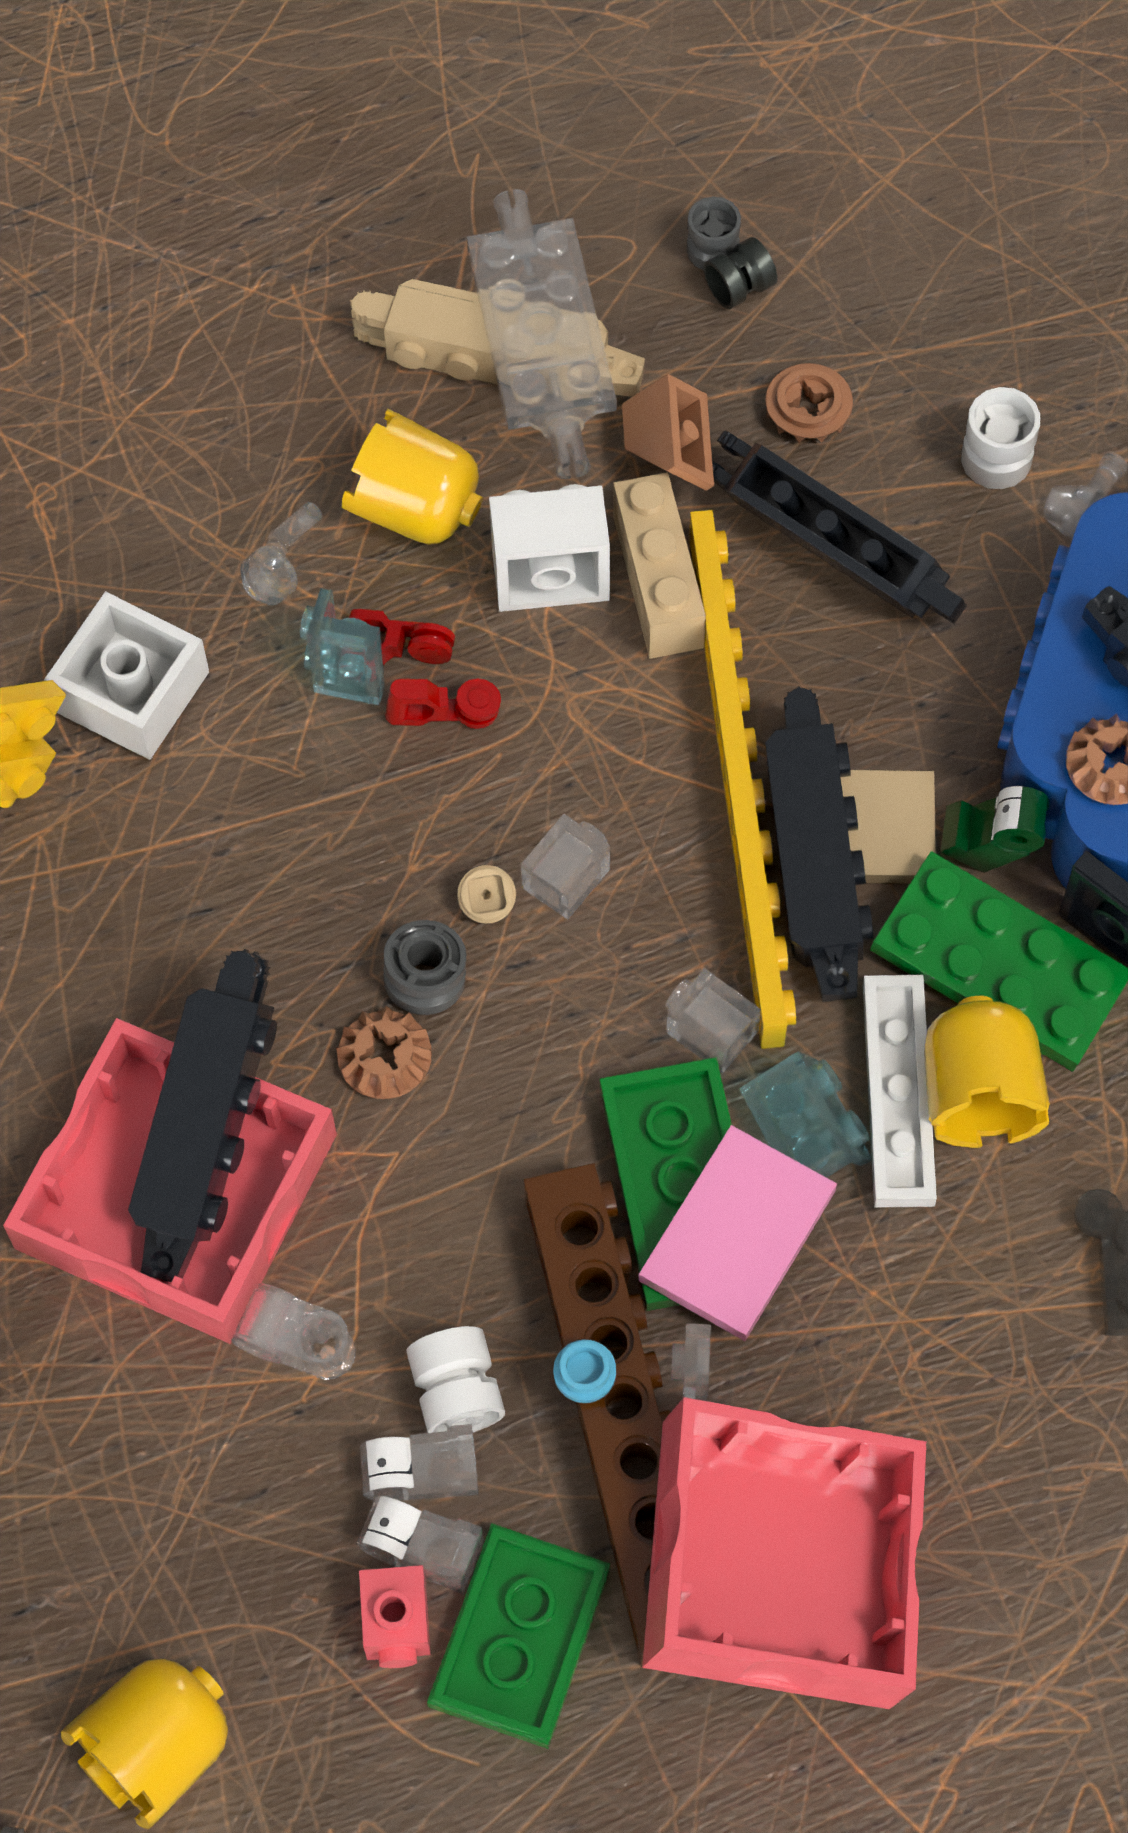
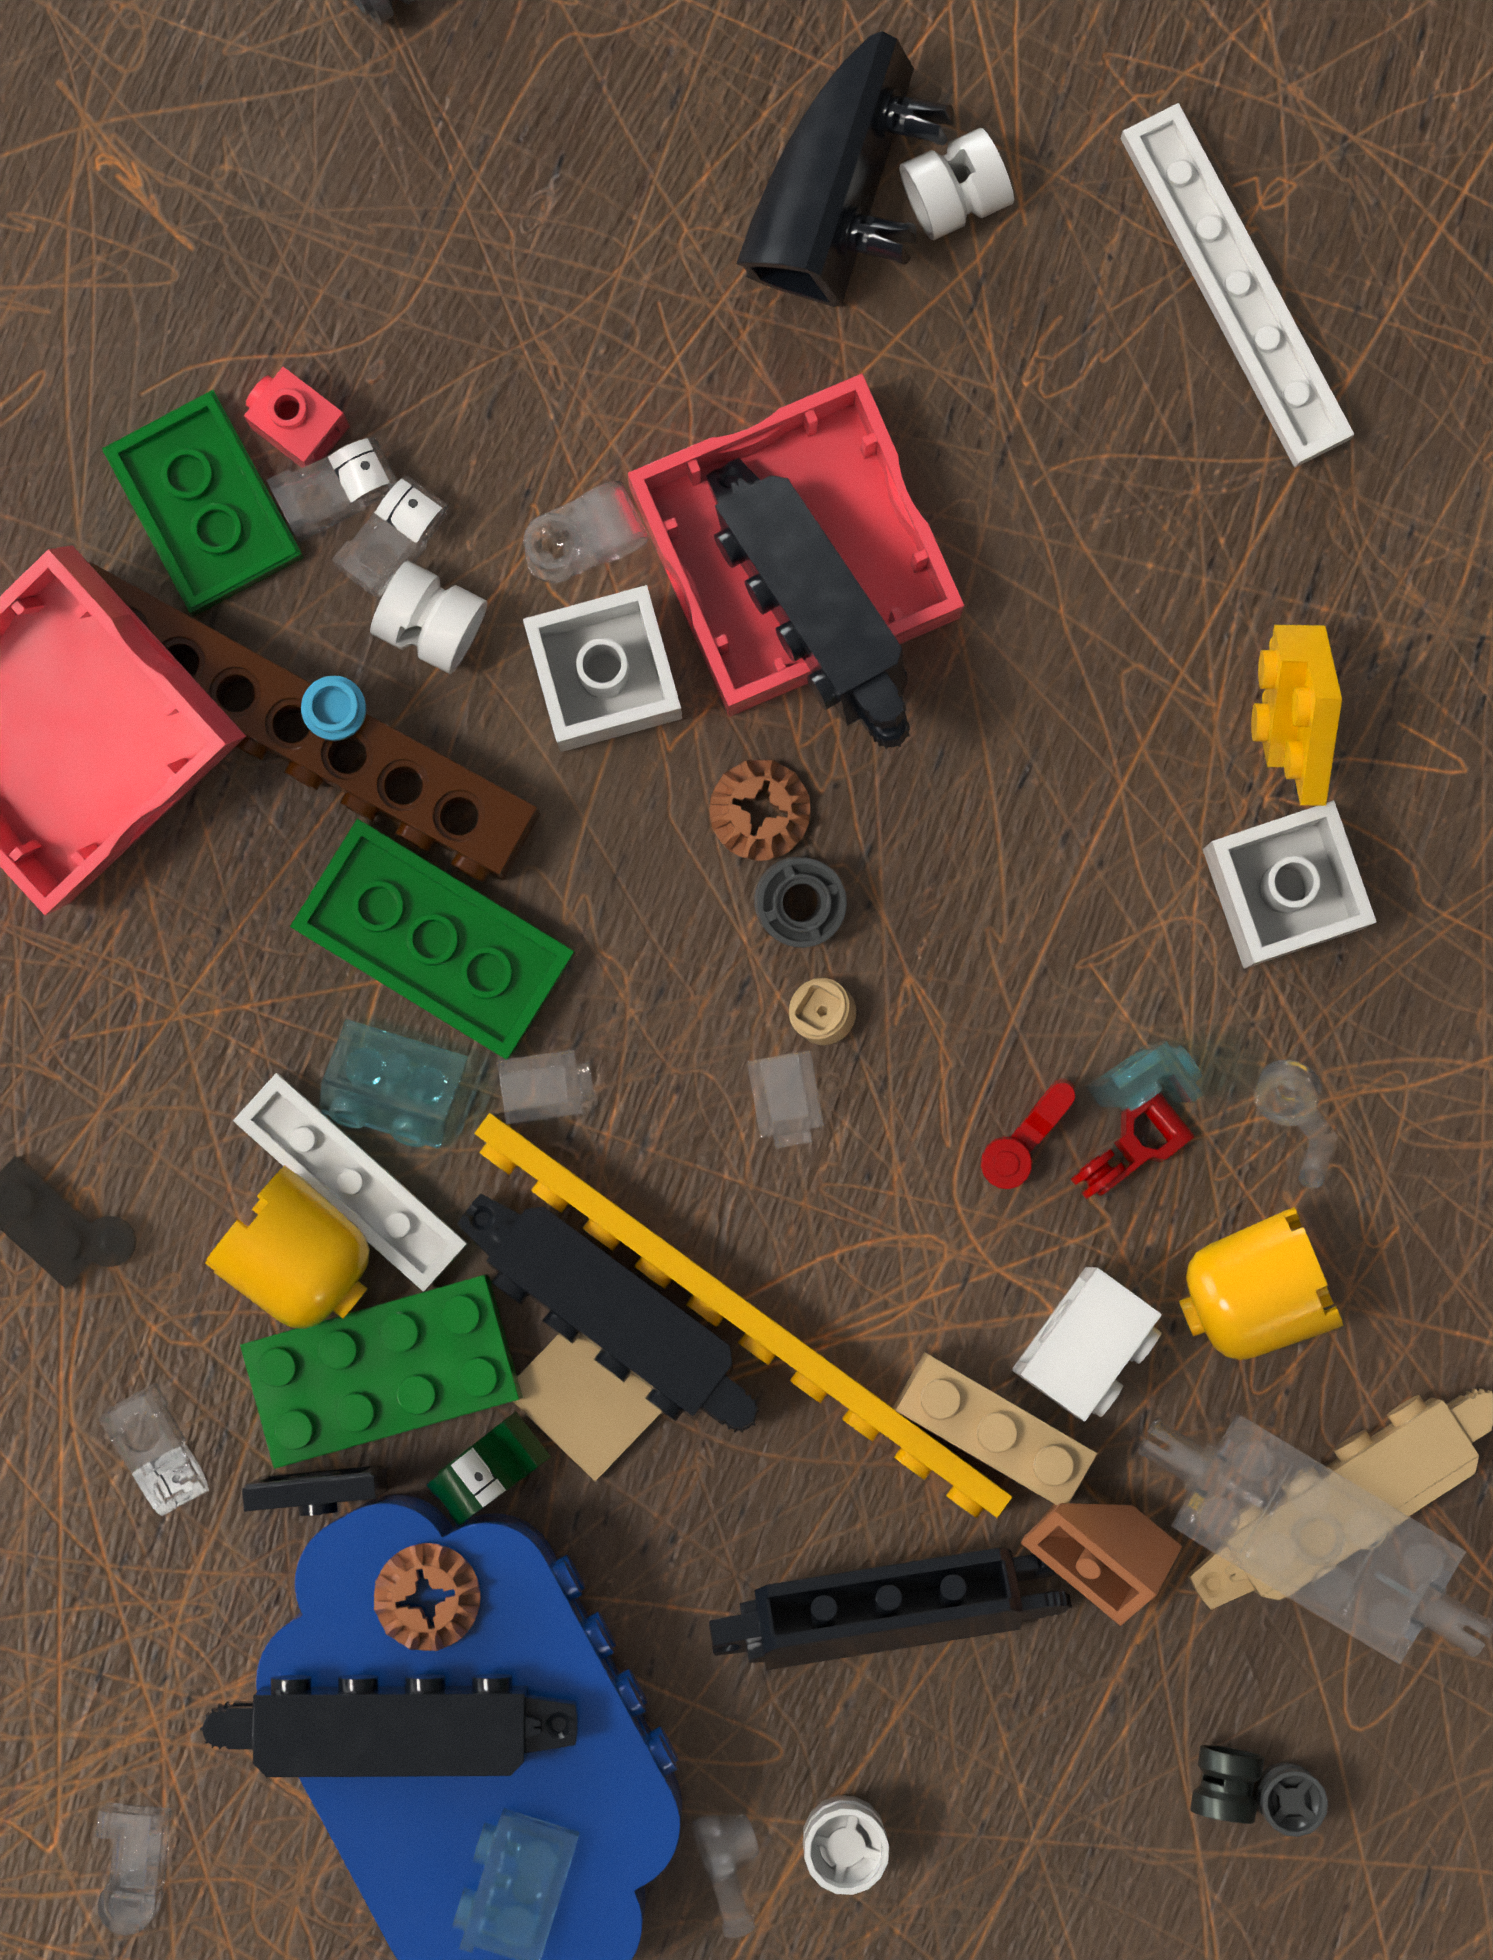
camera: 130 degrees right, 20 degrees up
(151, 1736) = (360, 161): yellow cylinder -> none
(382, 1225) = (603, 668): none -> white brick
(692, 1361) = (281, 811): clear plate -> none
(737, 1232) = (343, 936): bright pink tile -> none
(822, 387) = (1052, 1749): nougat gear -> none

